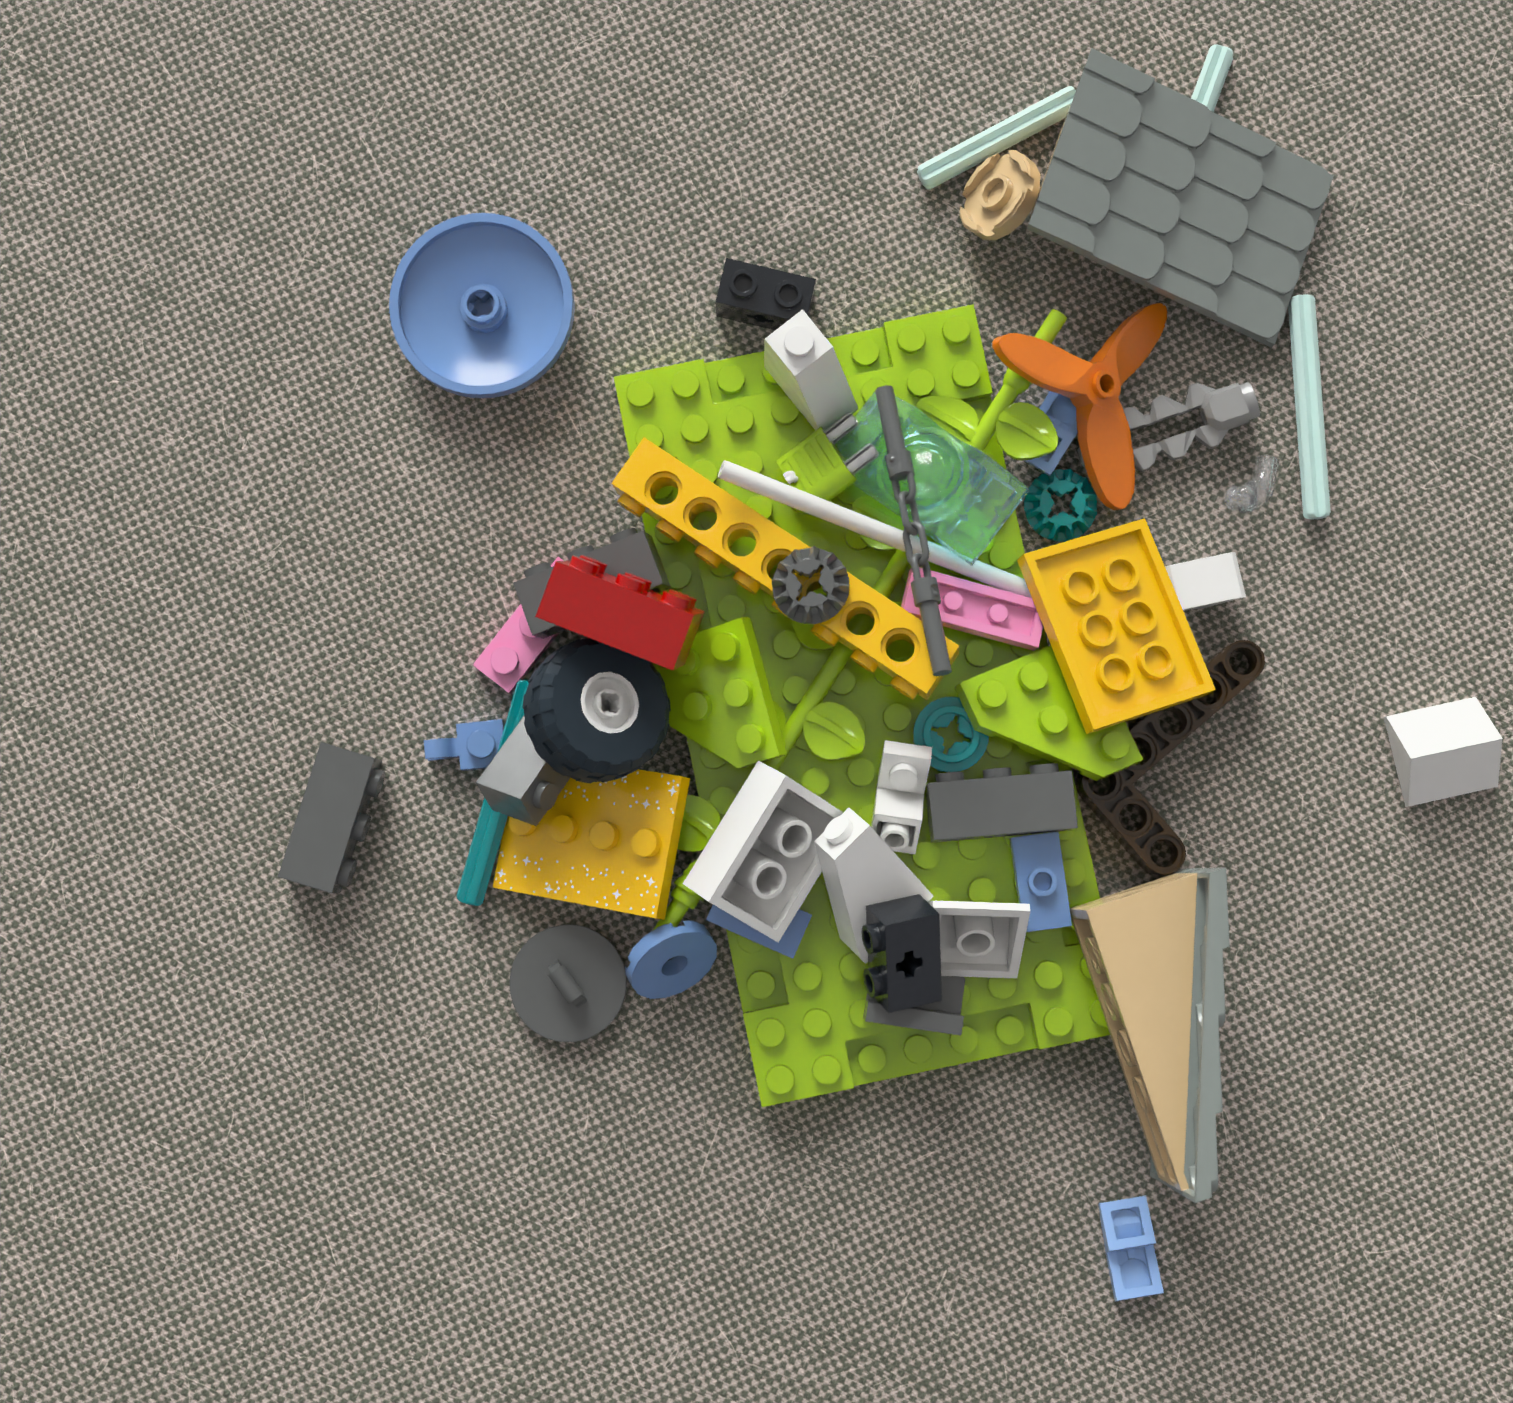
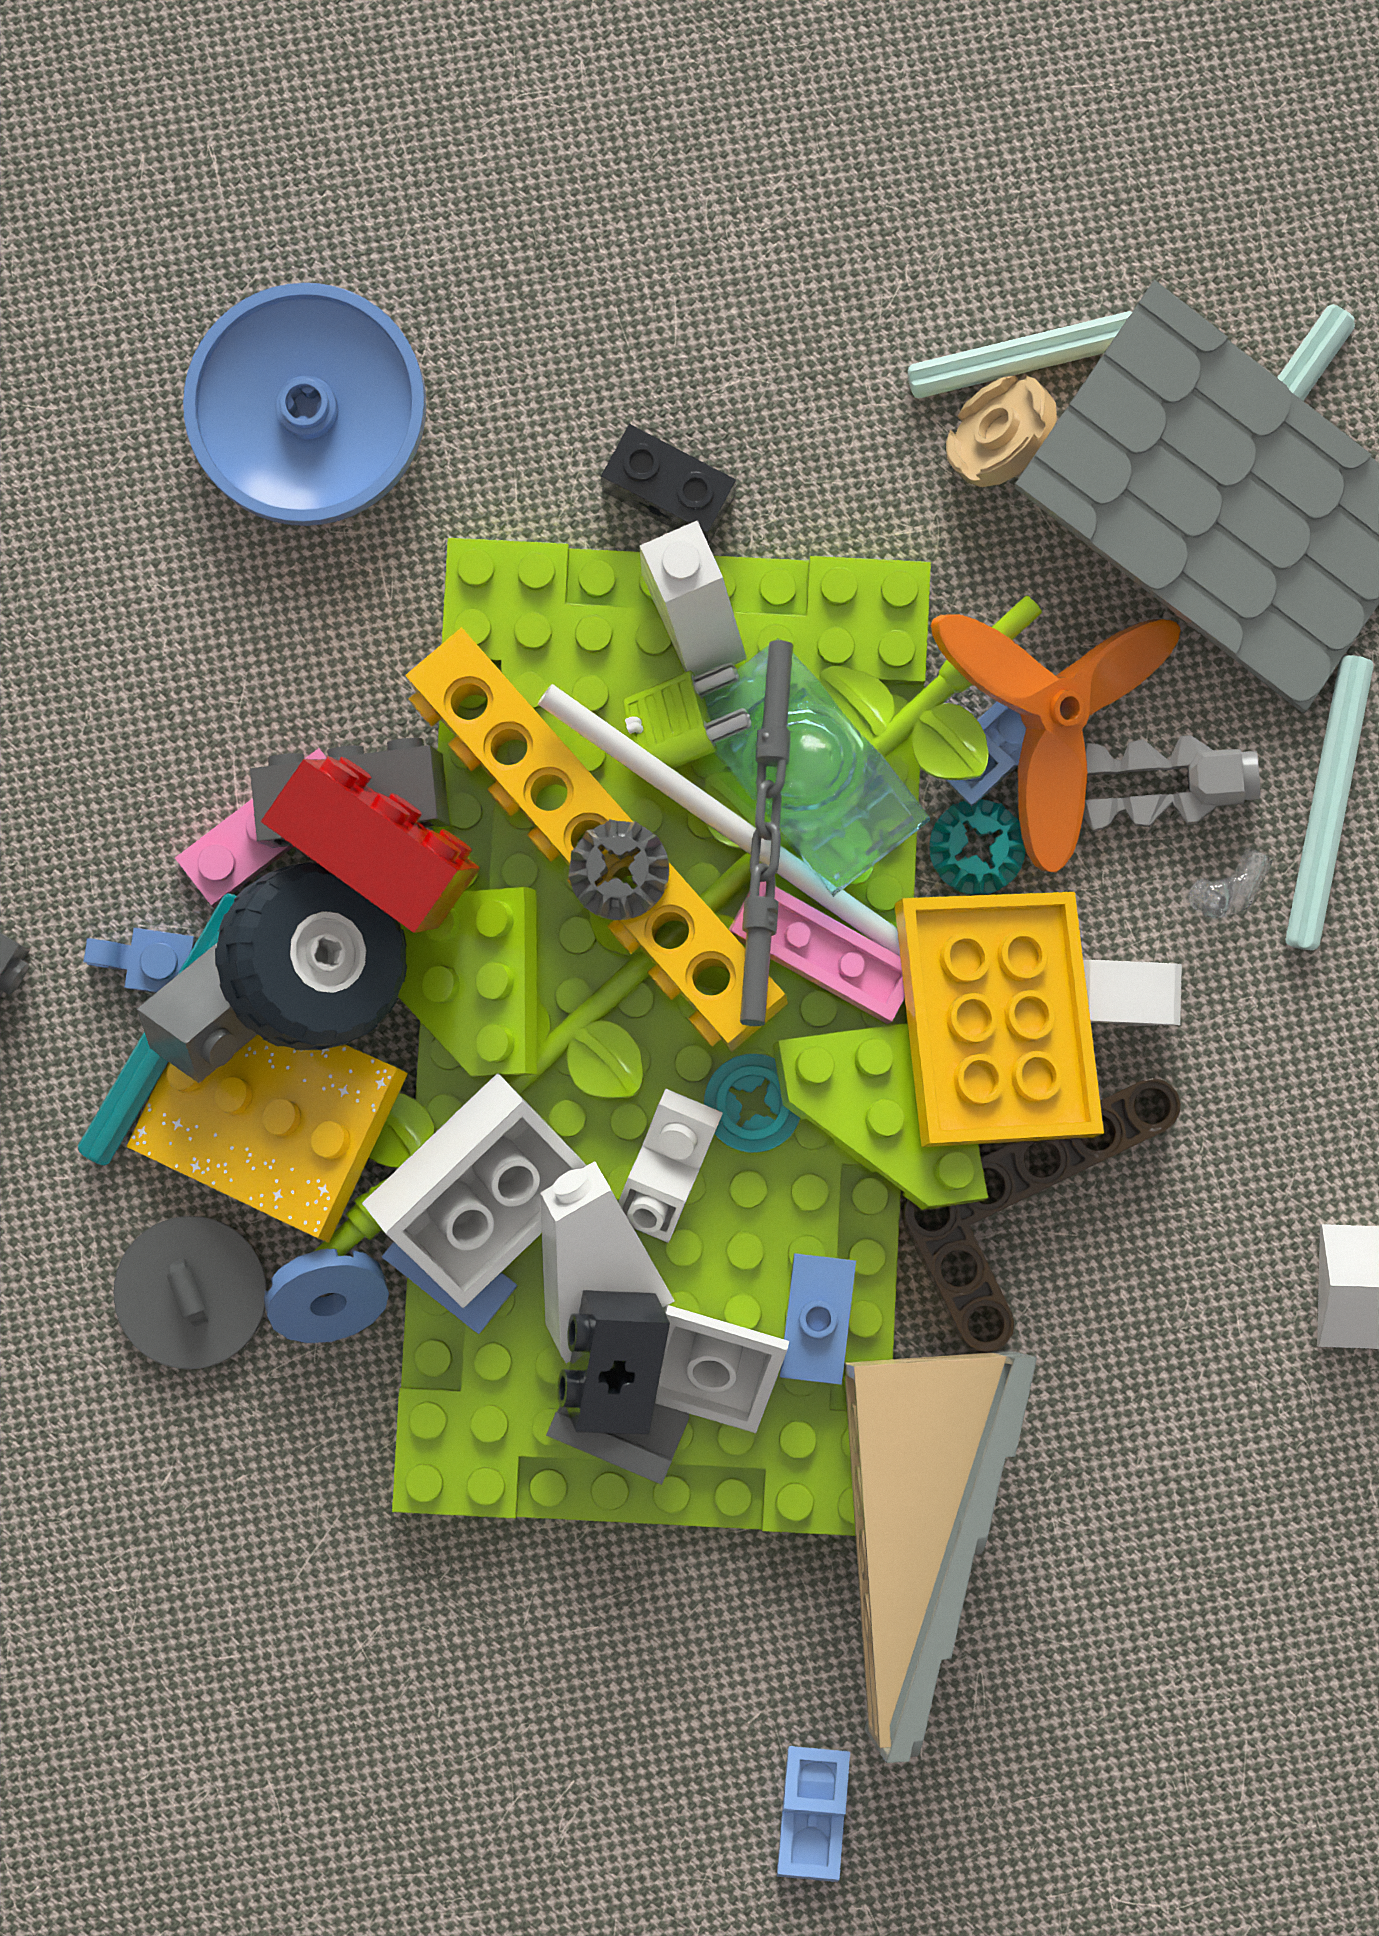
camera: 15 degrees right, 0 degrees up
(1000, 804) = (791, 1207): dark grey brick -> none

